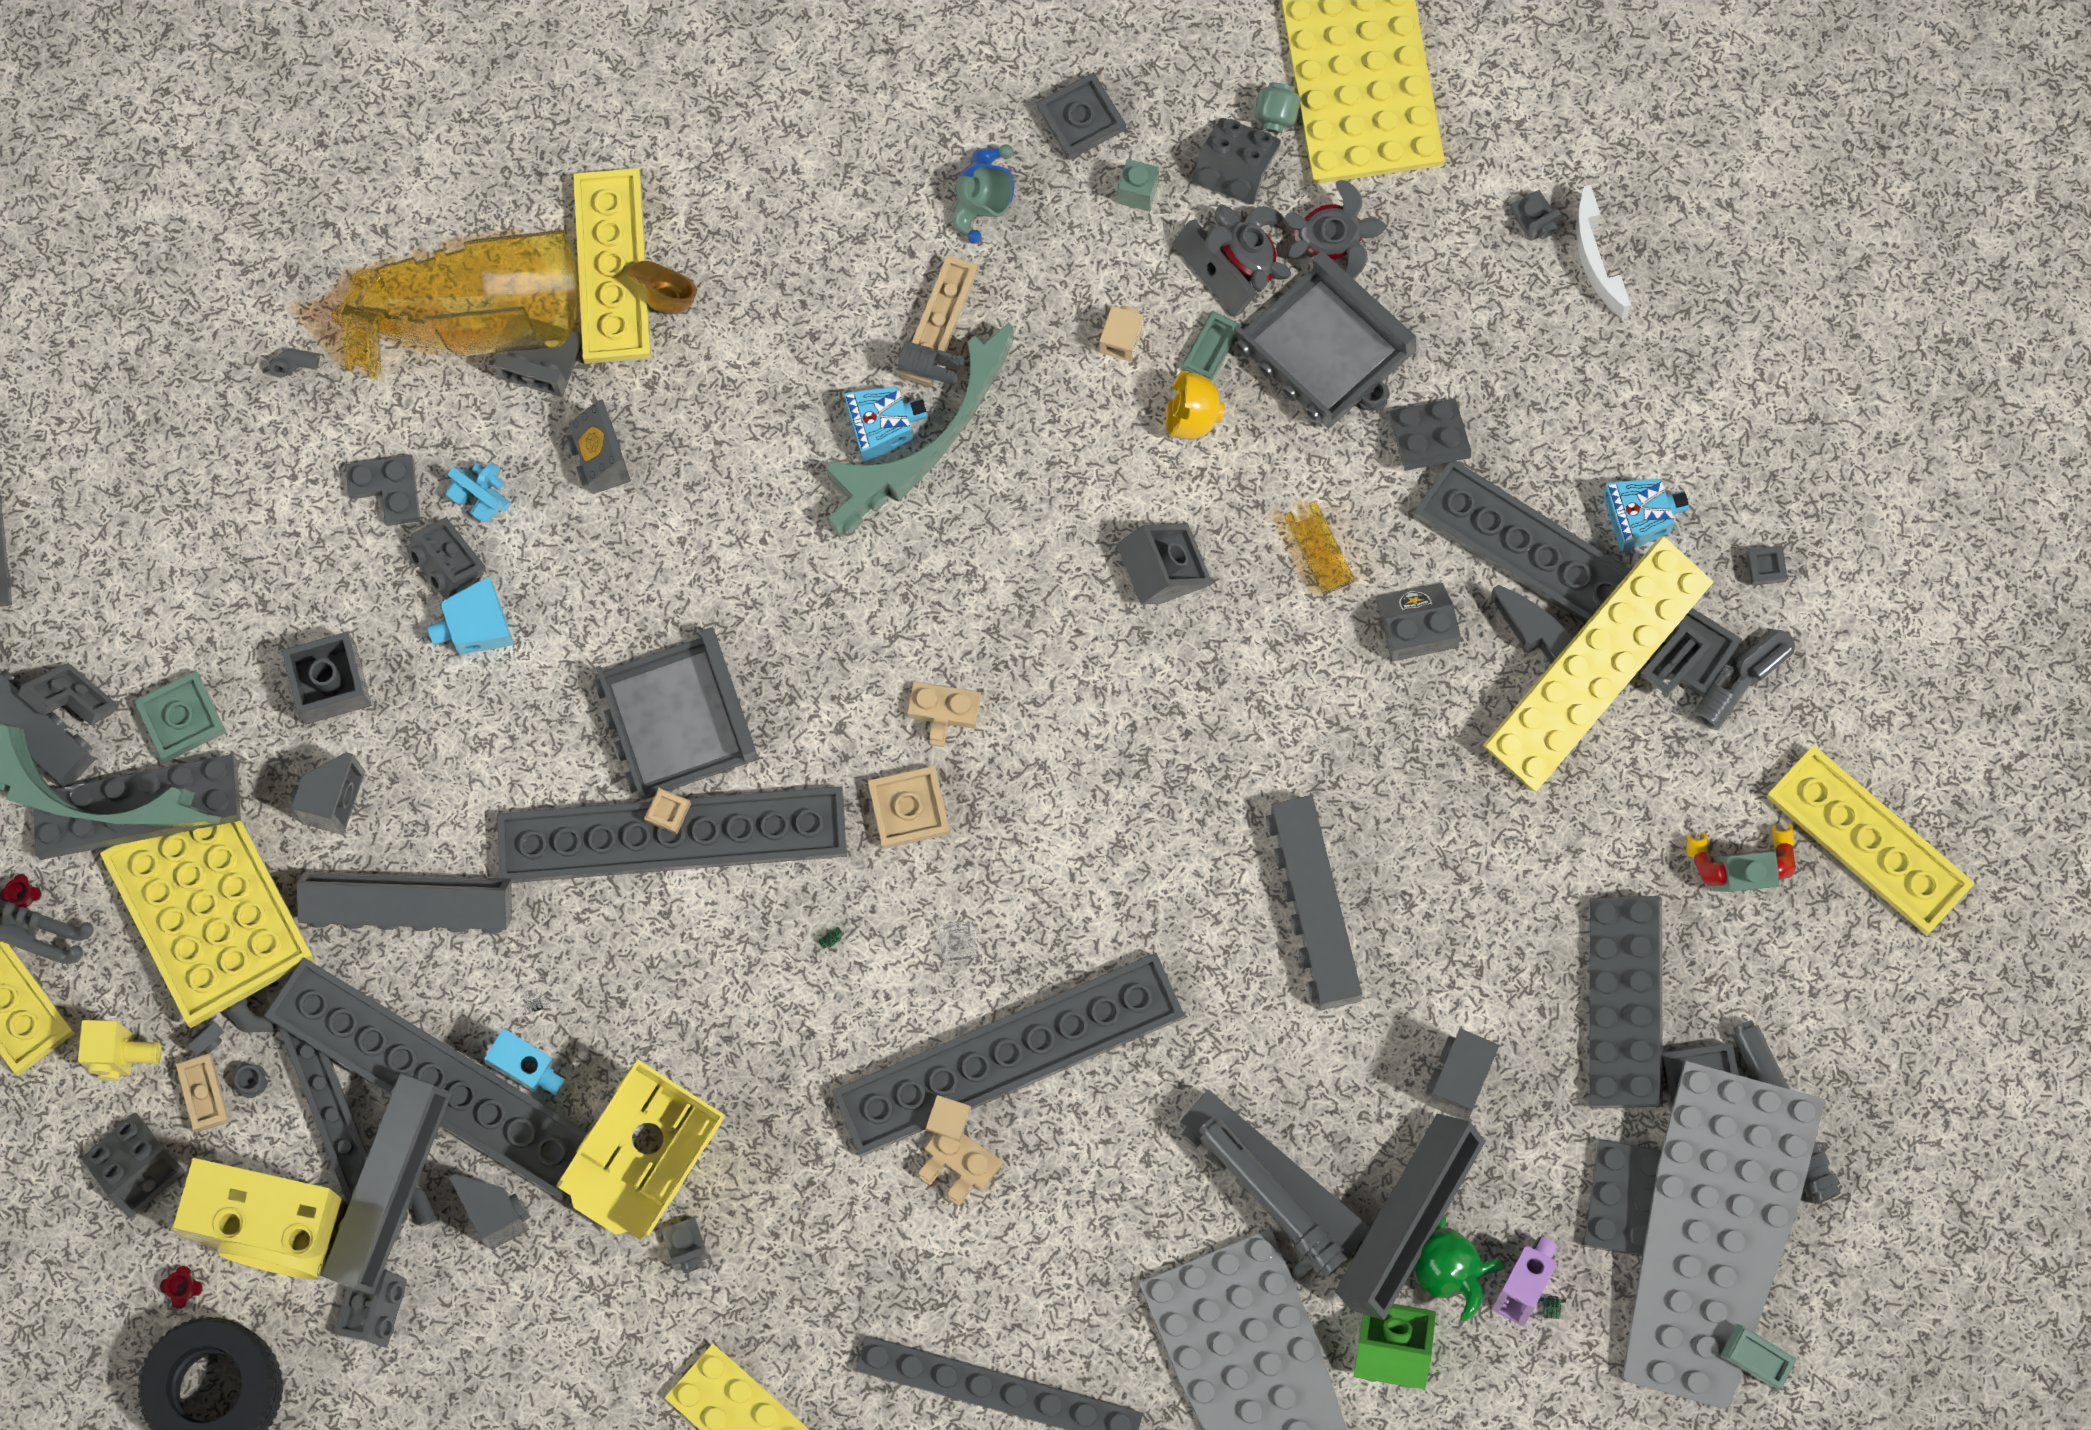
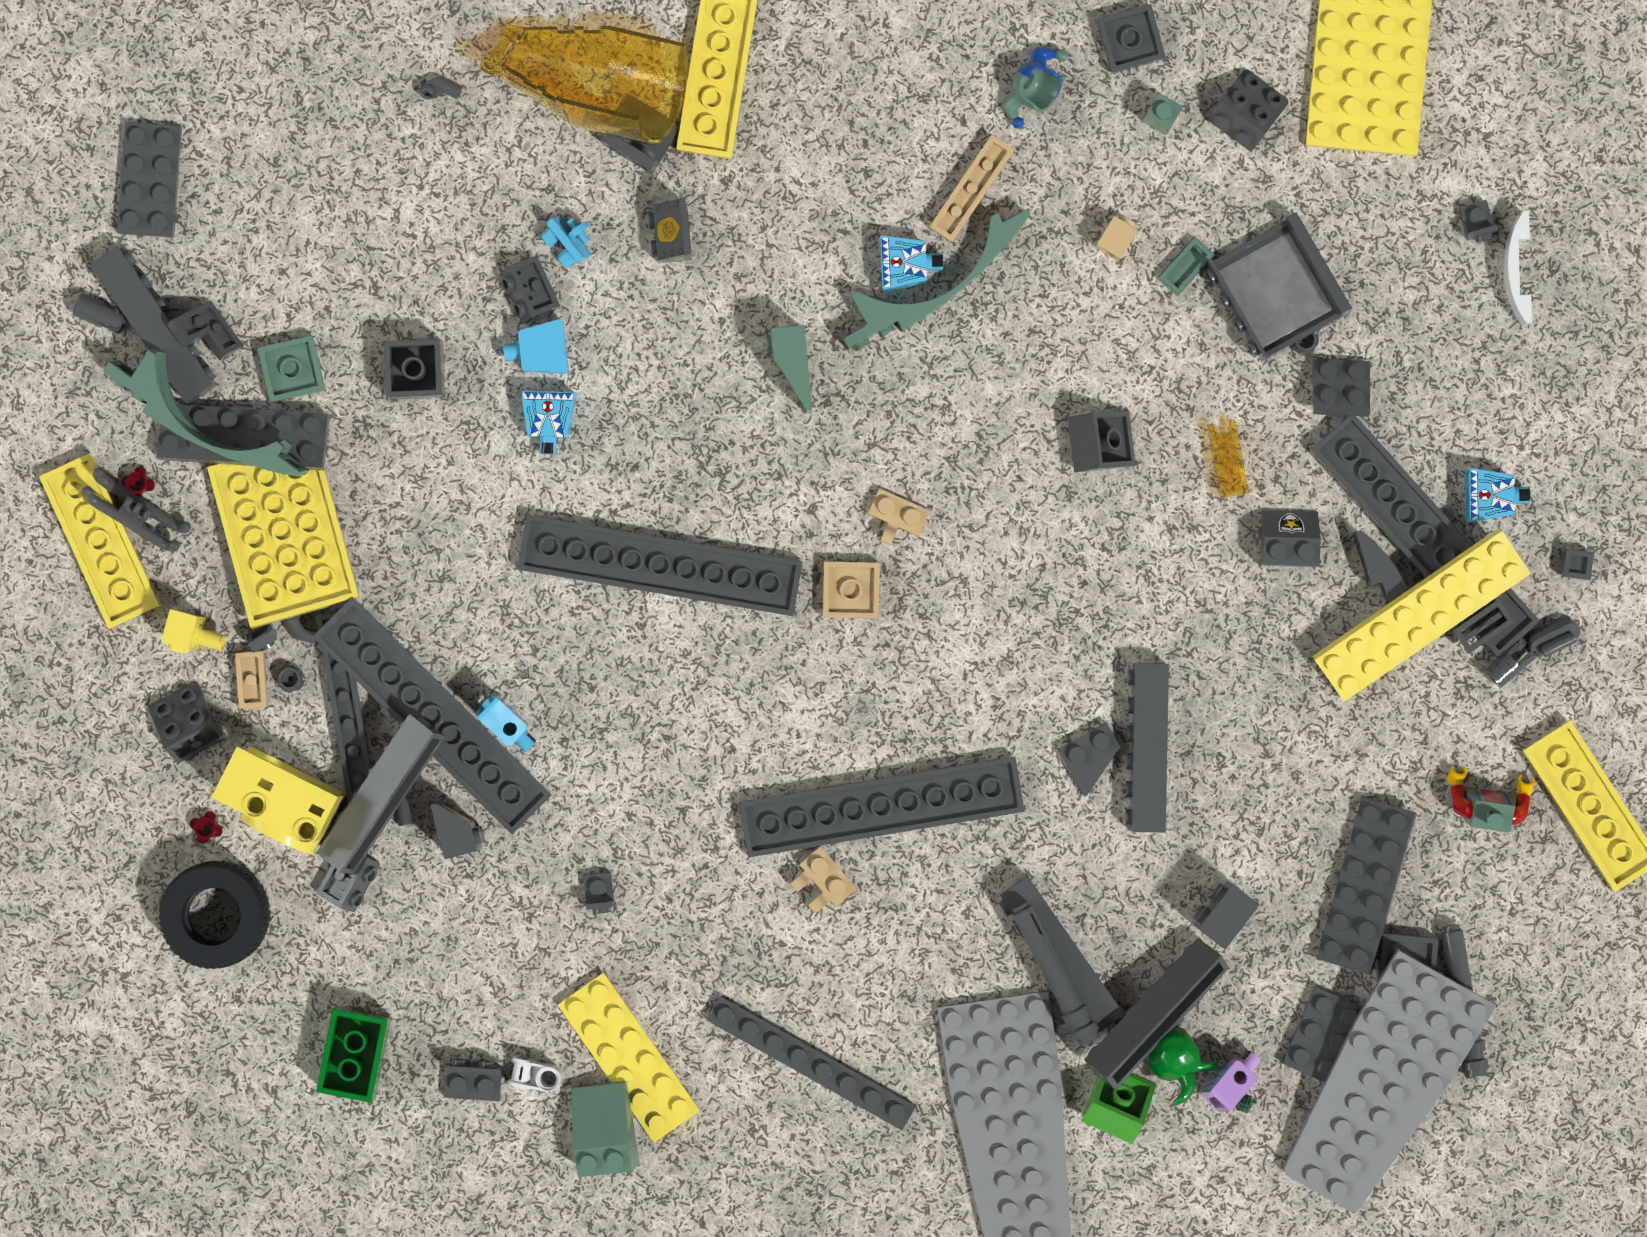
camera: 10 degrees right, 15 degrees up
(328, 794) = (396, 468): dark grey slope -> none
(361, 340) = (500, 91): clear yellow hinge -> none
(392, 479) = (501, 210): dark grey plate -> none
(404, 901) = (439, 568): dark grey brick -> none
(499, 695) = (548, 417): none -> torso
(616, 1181) = (574, 843): light yellow piece -> none
(665, 288) = (755, 97): pearl gold piece -> none
(667, 811) = (661, 547): tan tile -> none
(676, 716) = (684, 468): flat silver panel -> none
(767, 546) = (790, 356): none -> sand green slope
(830, 938) = (765, 679): clear green piece -> none
(924, 360) = (949, 225): dark grey hinge -> none
(948, 1118) = (823, 847): tan tile -> none
(1194, 407) = (1158, 318): yellow cylinder -> none
(1215, 271) = (1205, 200): dark grey tile -> none
(1247, 932) = (1089, 756): none -> dark grey wing
(1248, 244) = (1237, 188): dark grey animal -> none
(1277, 107) = (1293, 73): sand green head -> none
(1336, 230) = (1312, 195): dark grey animal -> none
(1758, 1357) = (1388, 1182): sand green tile -> none

